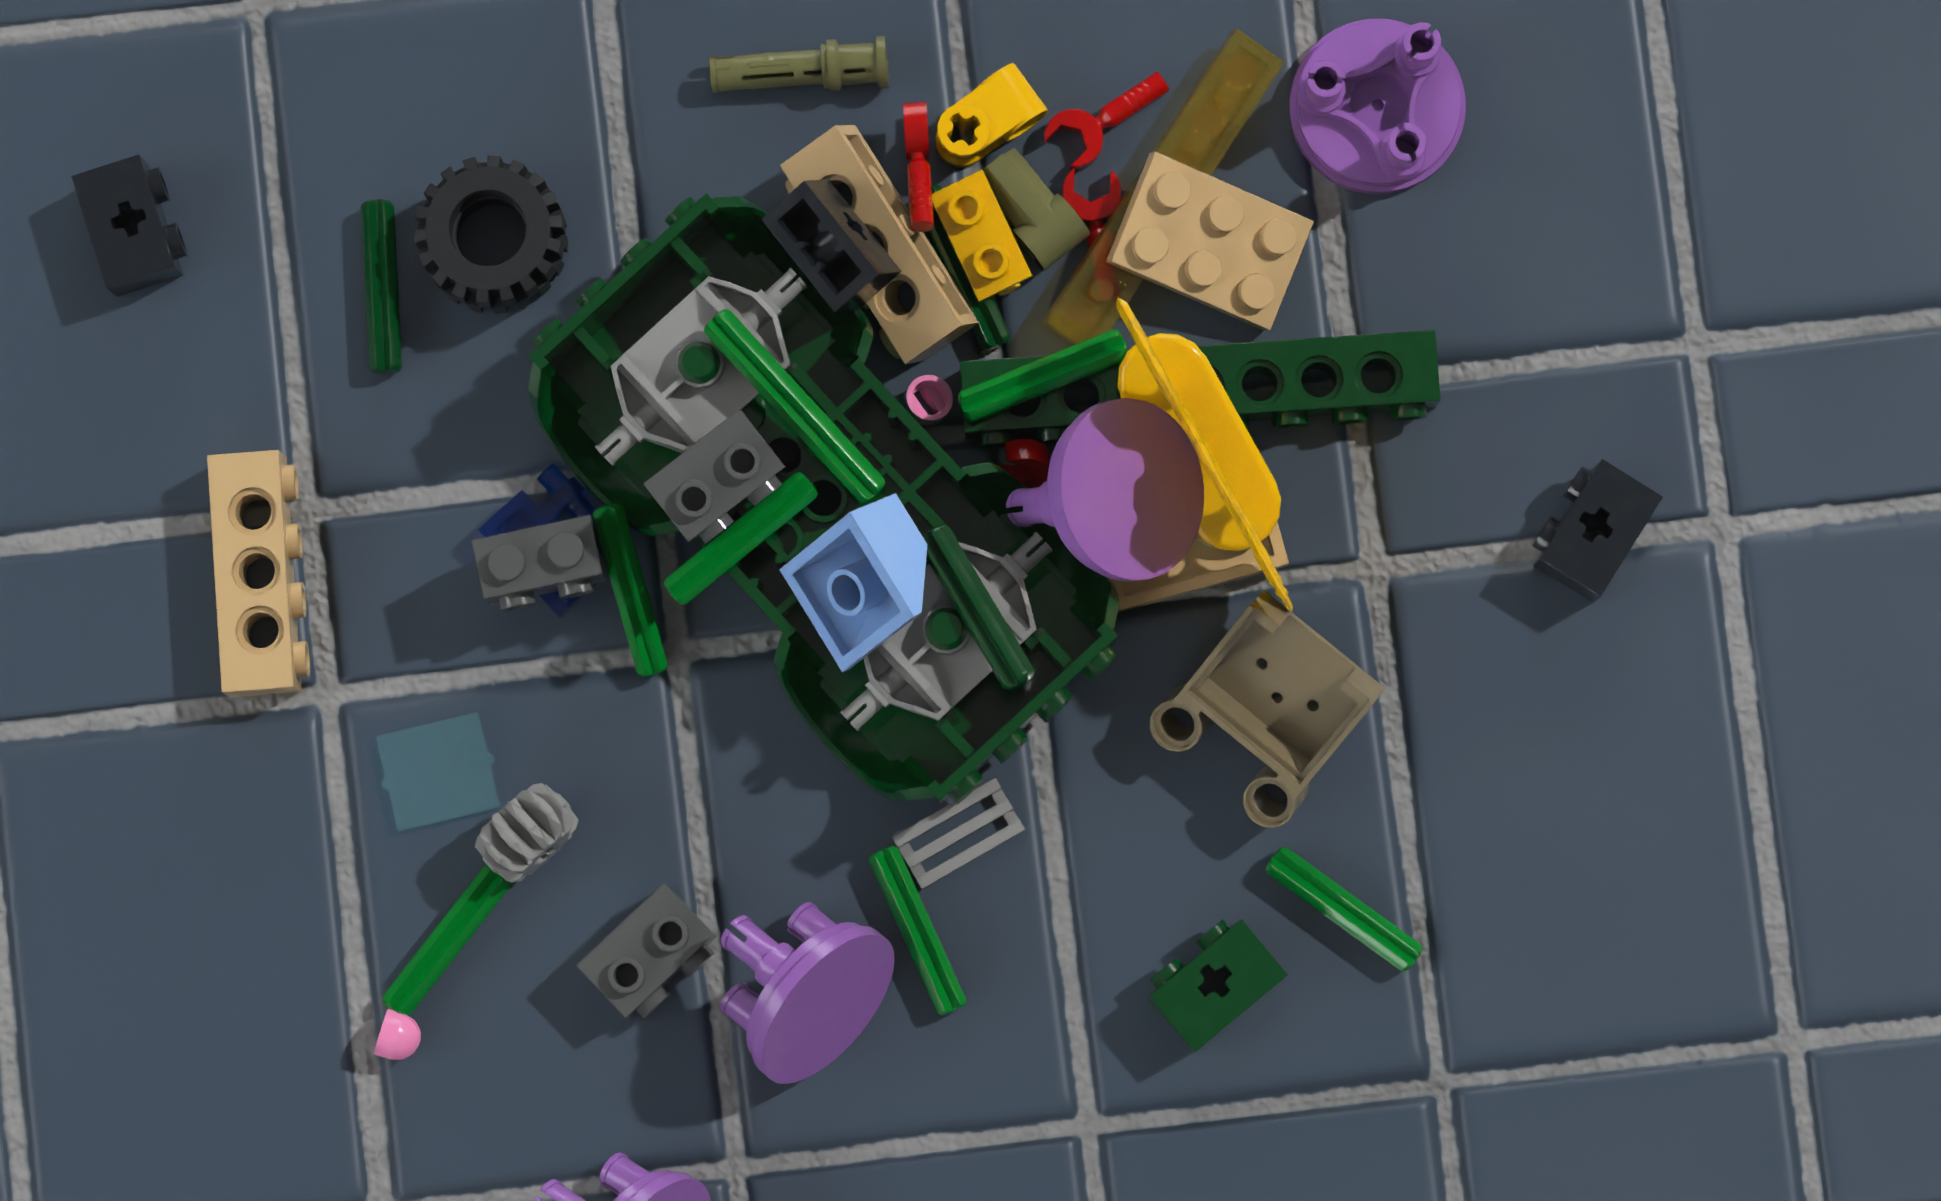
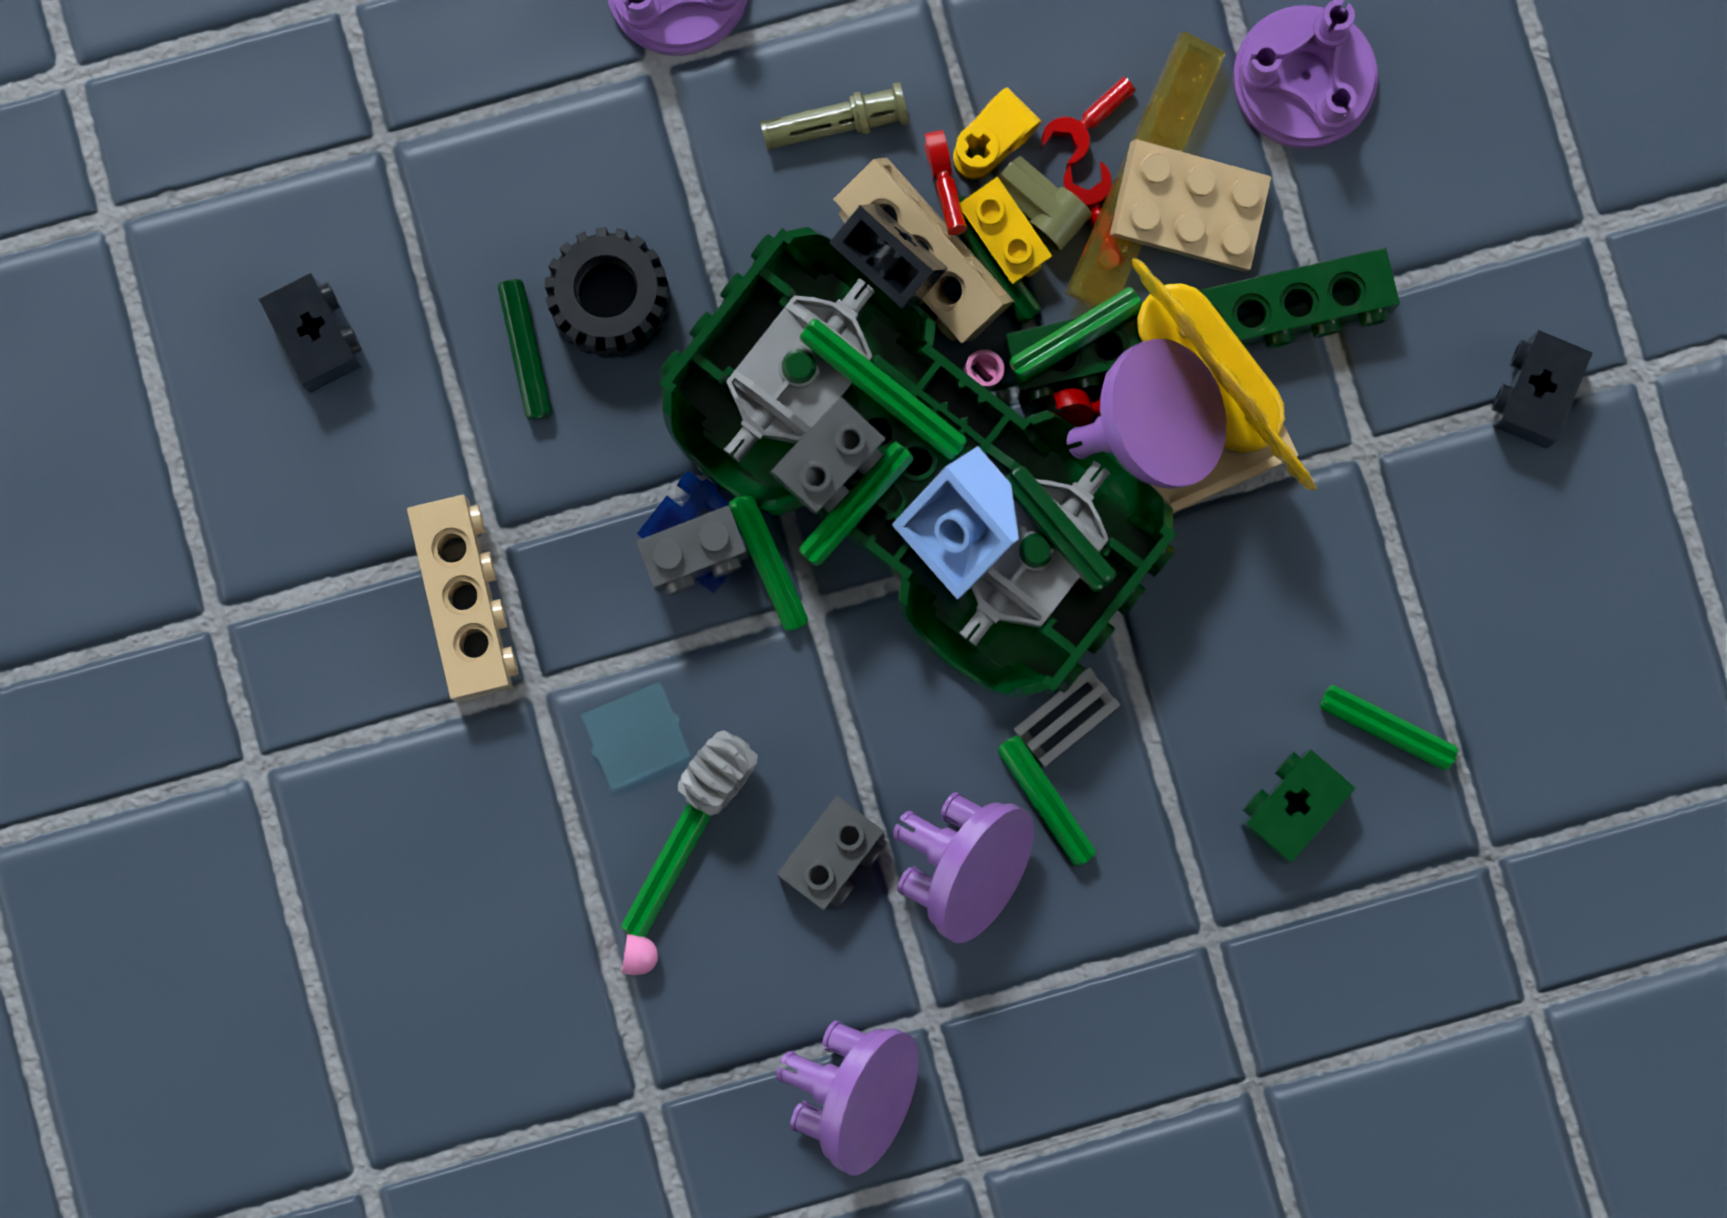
camera: 10 degrees left, 0 degrees up
(1276, 694) = (1309, 562): dark tan piece -> none

